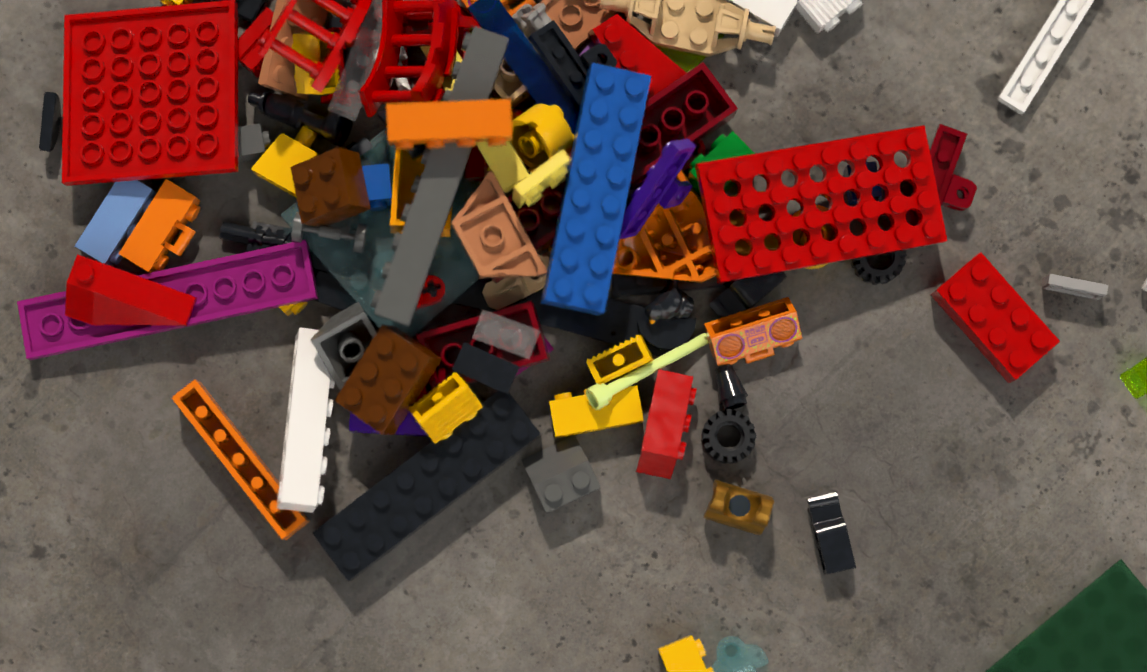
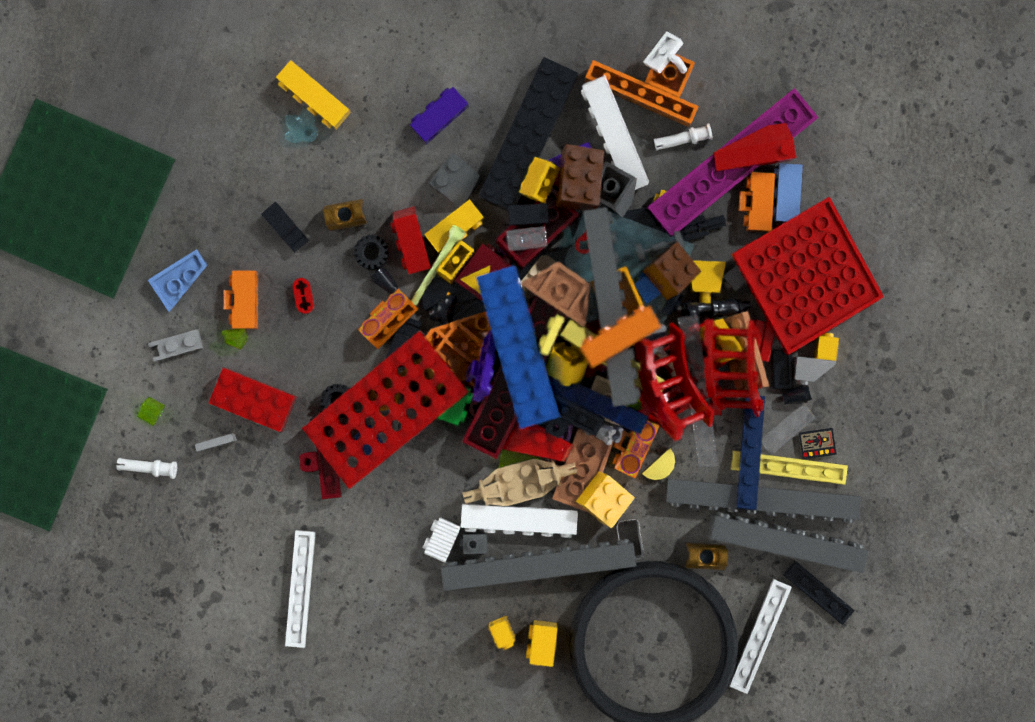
camera: 160 degrees right, 5 degrees up
(50, 121) = (856, 229): black tile -> none
(177, 493) = (665, 52): none -> white plate
(186, 467) = (670, 78): none -> orange brick
(203, 367) = (692, 136): none -> white pin
(536, 579) = (439, 114): none -> dark purple brick
(586, 334) = (482, 263): none -> dark red brick
(859, 428) = (299, 297): none -> red beam
(931, 471) = (245, 293): none -> orange piece
(977, 415) = (235, 337): none -> clear neon green slope
(1018, 540) = (177, 278): none -> medium blue wing
(1062, 449) = (177, 345): none -> light grey hinge

